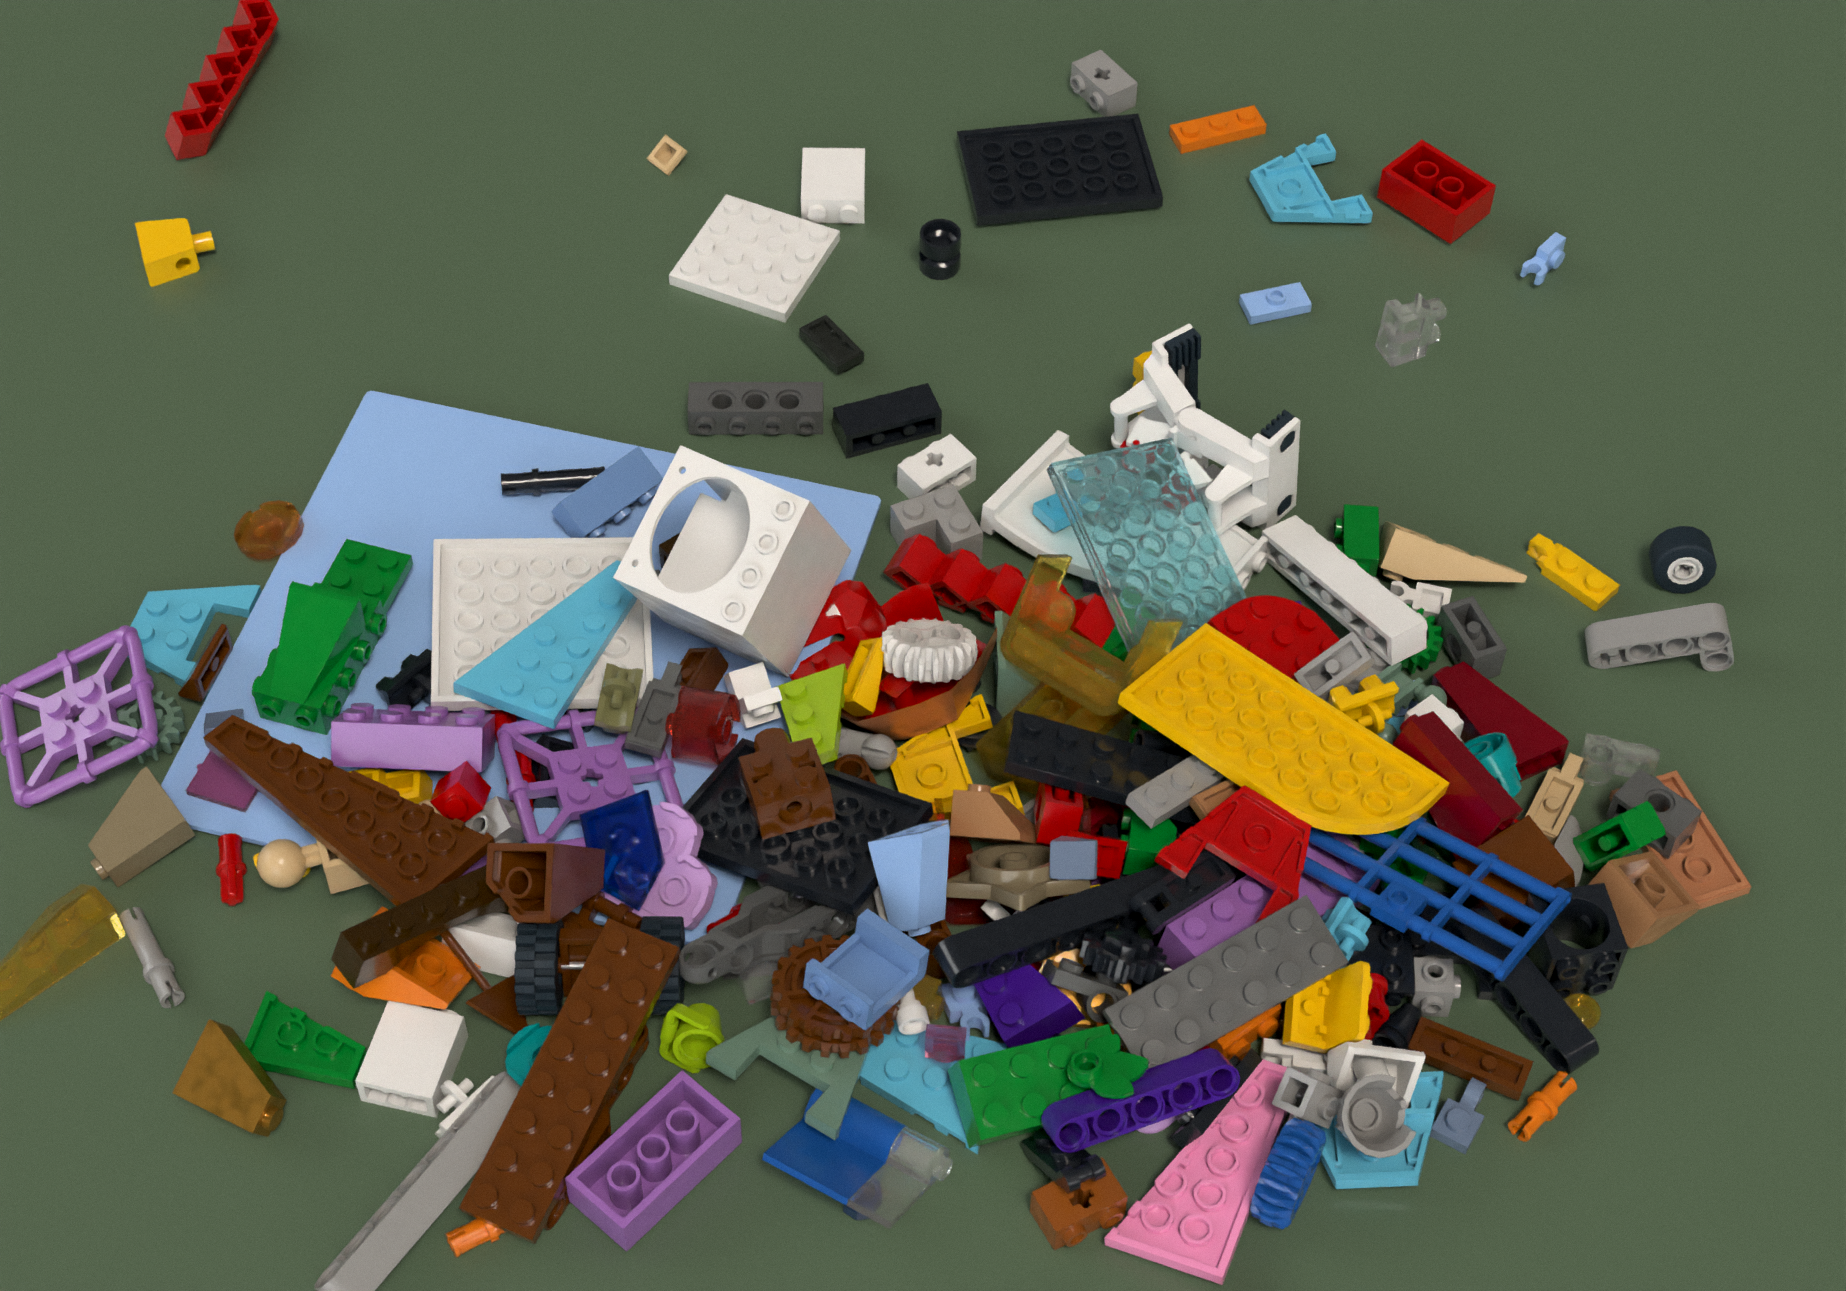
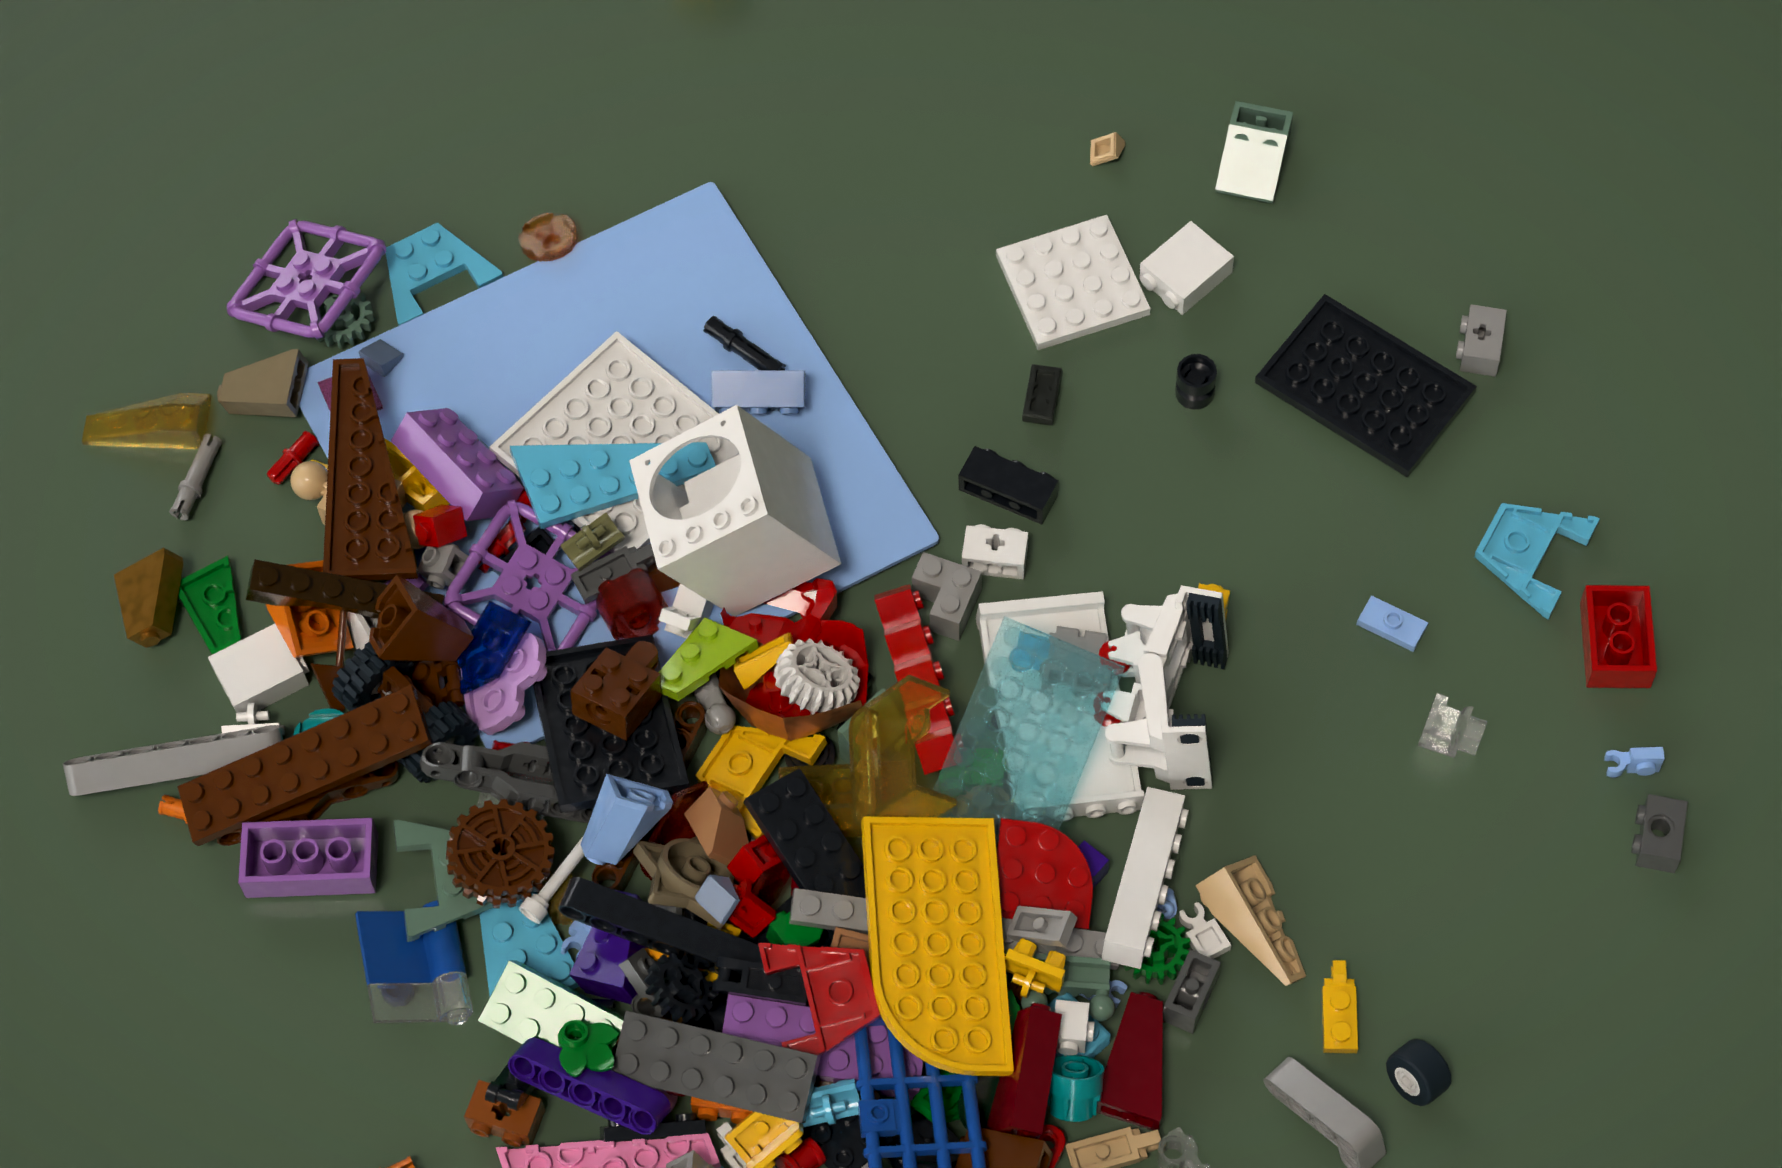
camera: 50 degrees right, 10 degrees up
(207, 665) = (412, 307): reddish brown slope -> none
(329, 636) = (495, 347): green wedge -> none
(410, 684) = (497, 421): black hips -> none
(695, 1036) = (414, 801): lime piece -> none
(755, 408) = (908, 369): dark grey brick -> none
(787, 76) = (1254, 152): none -> slope
(867, 971) = (517, 856): medium blue panel -> none
(945, 1043) = (535, 944): clear pink plate -> none
(1217, 129) = (1529, 447): orange plate -> none
(1359, 535) = (1219, 847): green brick -> none
(1619, 289) = (1664, 815): none -> dark grey brick

